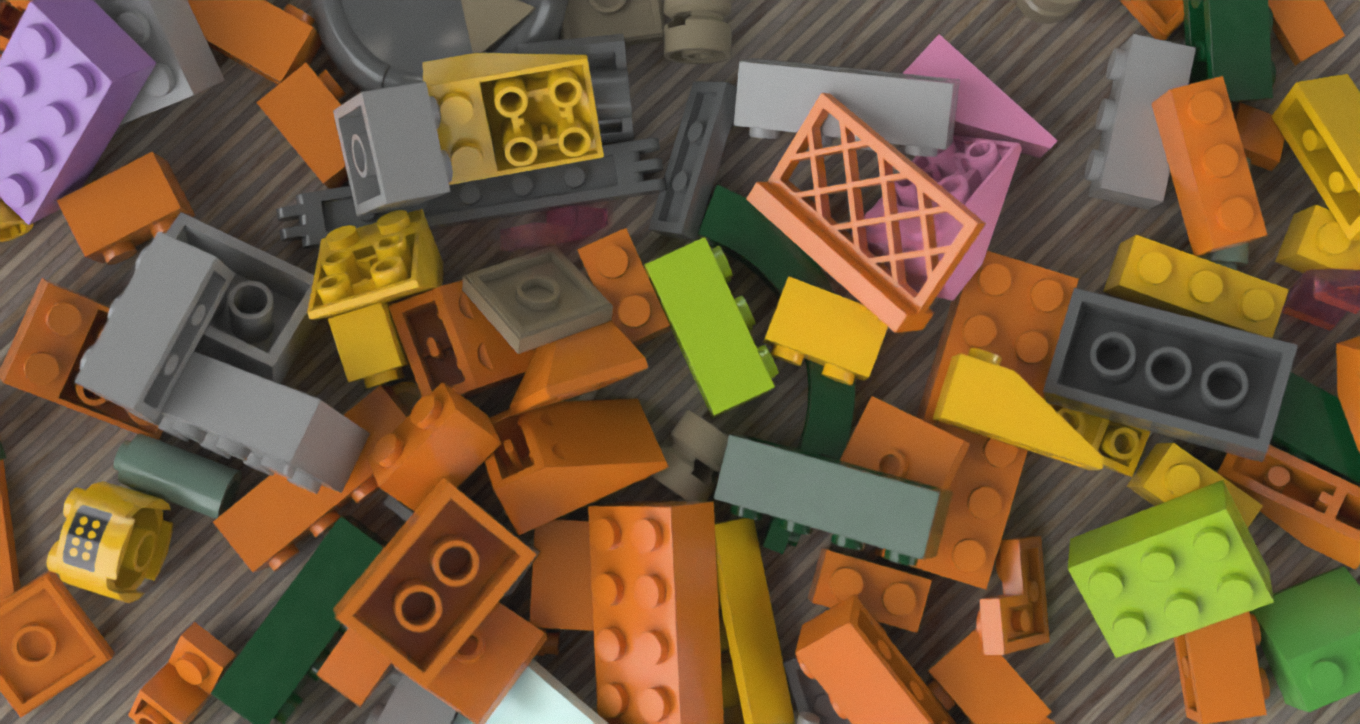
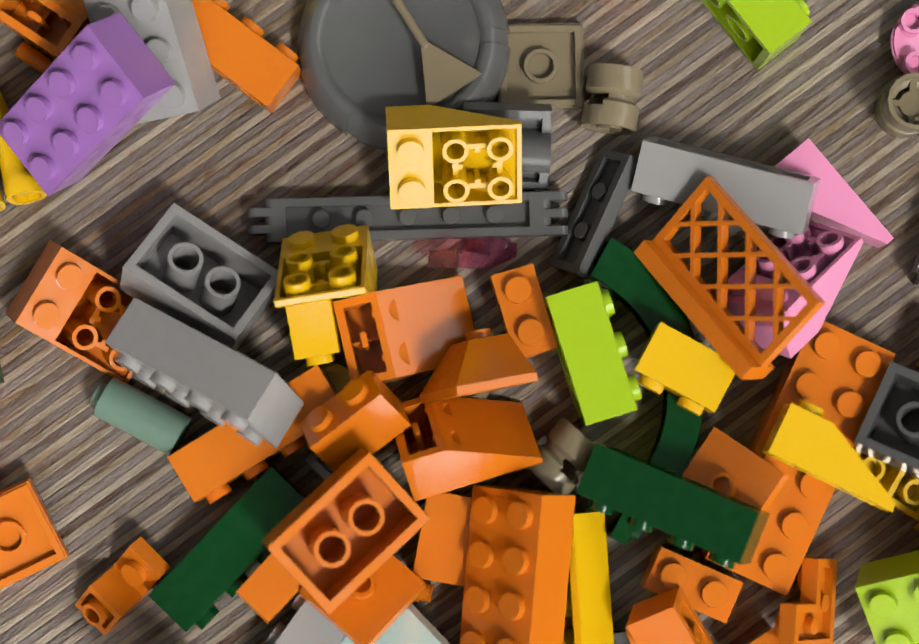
camera: 10 degrees right, 0 degrees up
(111, 540) = (82, 461): yellow brick -> none
(125, 209) = (126, 193): orange piece -> none
(155, 326) = (148, 295): light grey brick -> none
(305, 116) = (292, 145): orange brick -> none
(392, 148) = (354, 176): light grey brick -> none
(537, 298) = (453, 311): dark tan tile -> none

